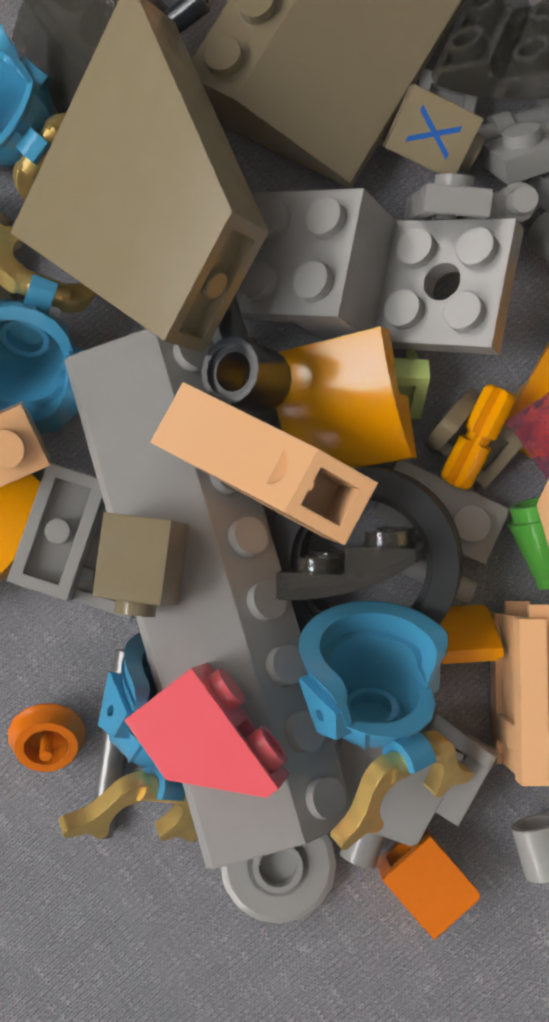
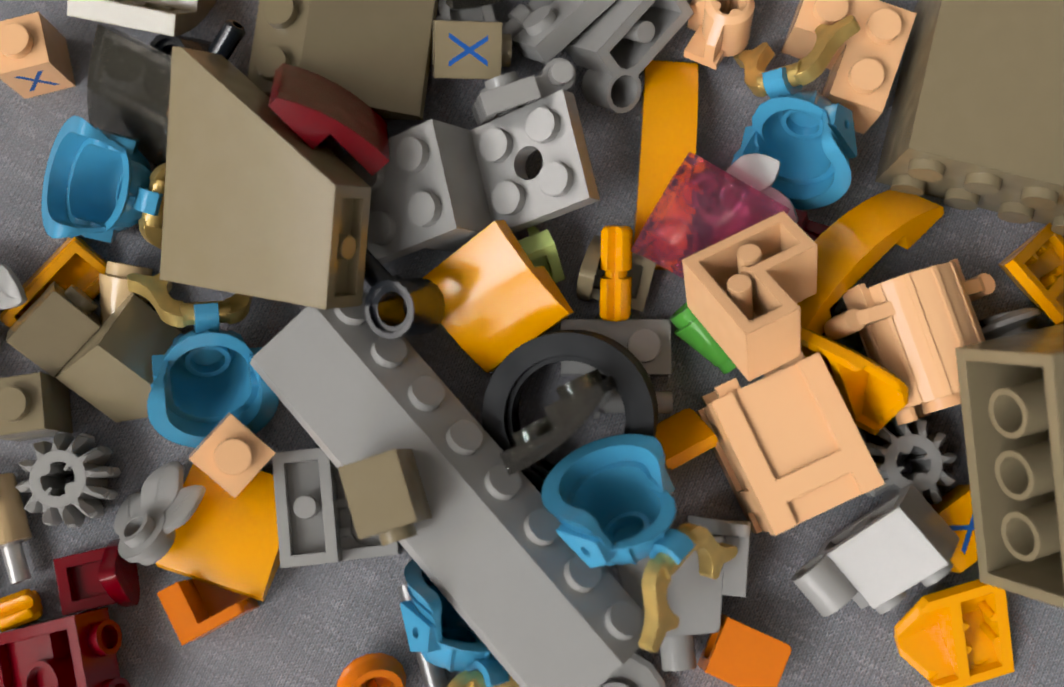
camera: 25 degrees left, 5 degrees down
(205, 737) = (499, 612): coral slope -> none
(252, 123) = (321, 108): none -> dark red slope
(264, 463) = (450, 371): light nougat slope -> none

